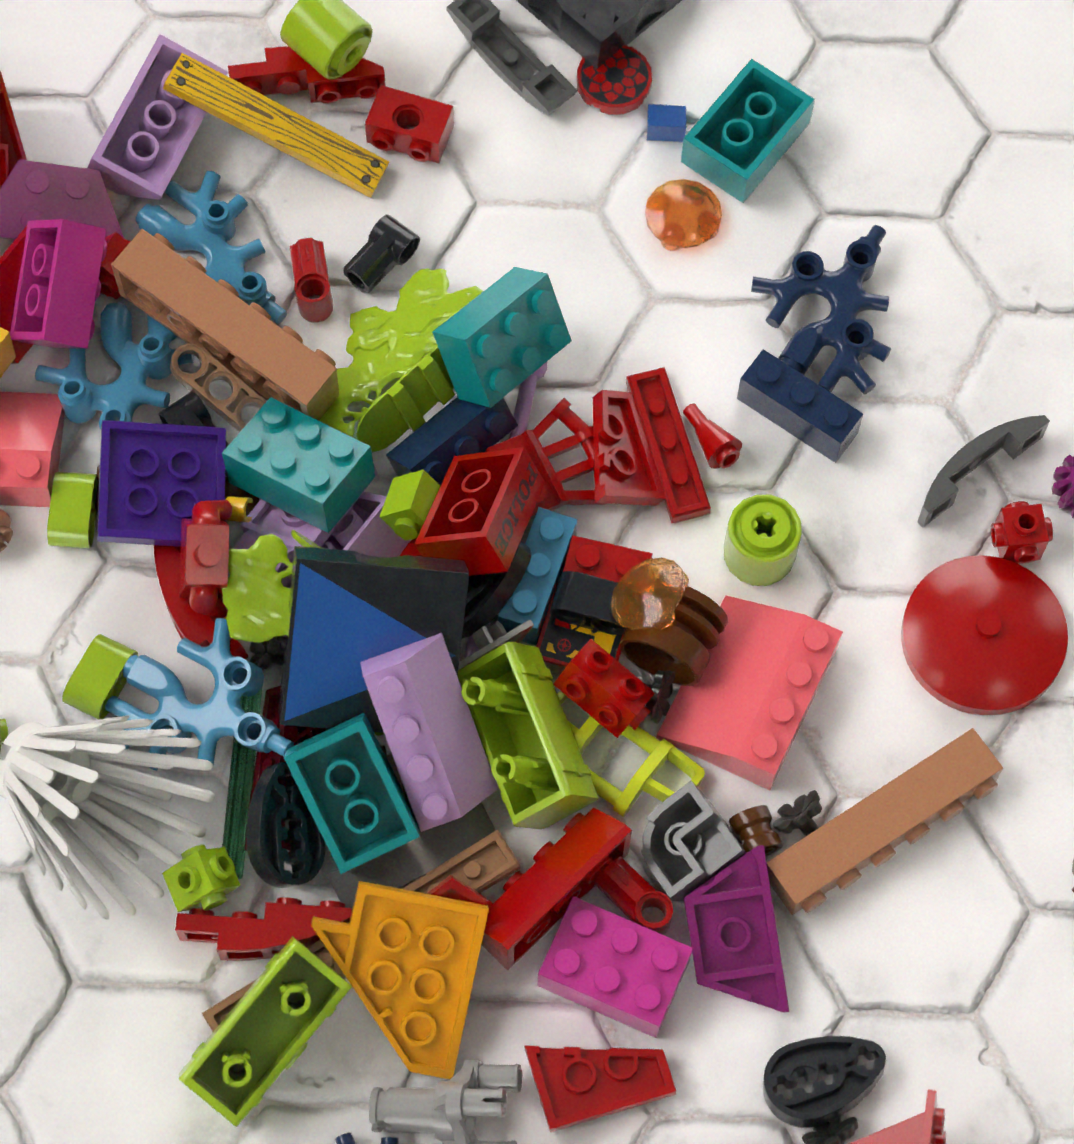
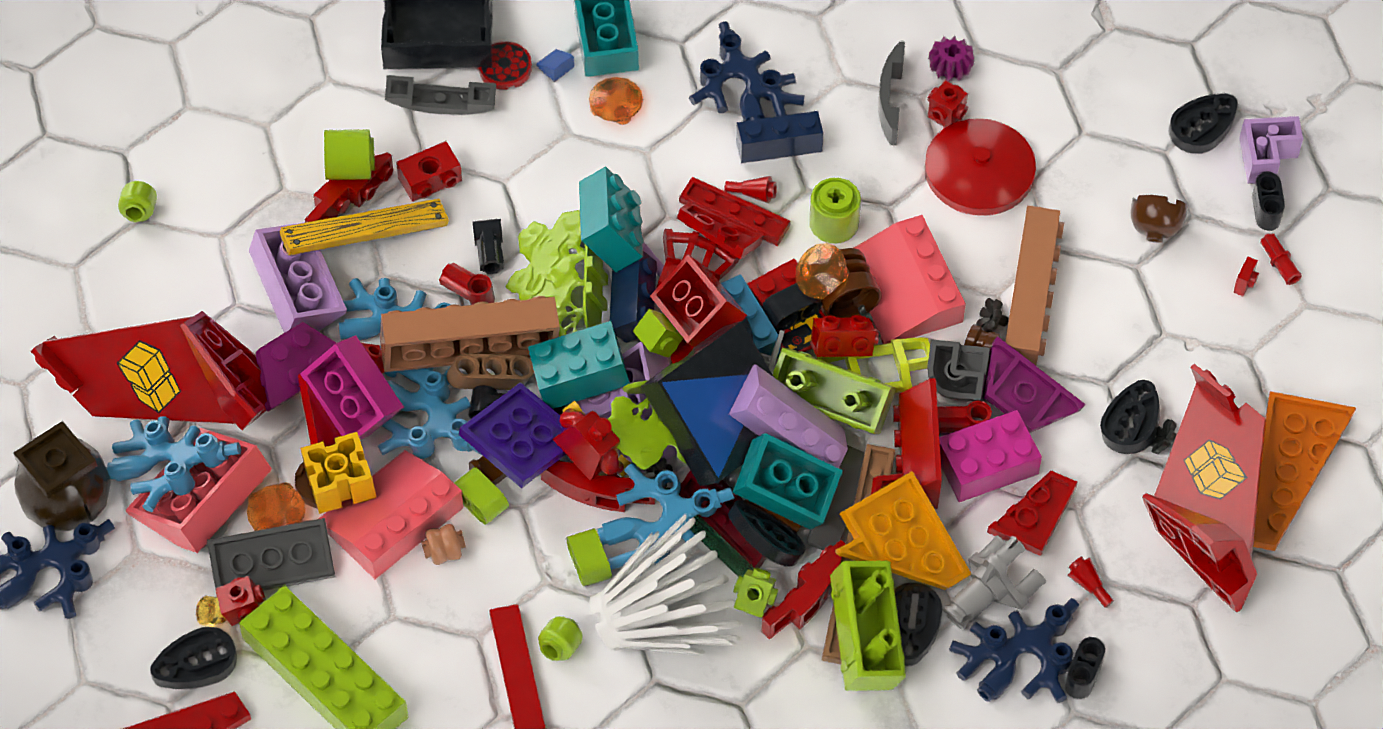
camera: 45 degrees left, 10 degrees down
(355, 1084) = (927, 619): none -> black piece

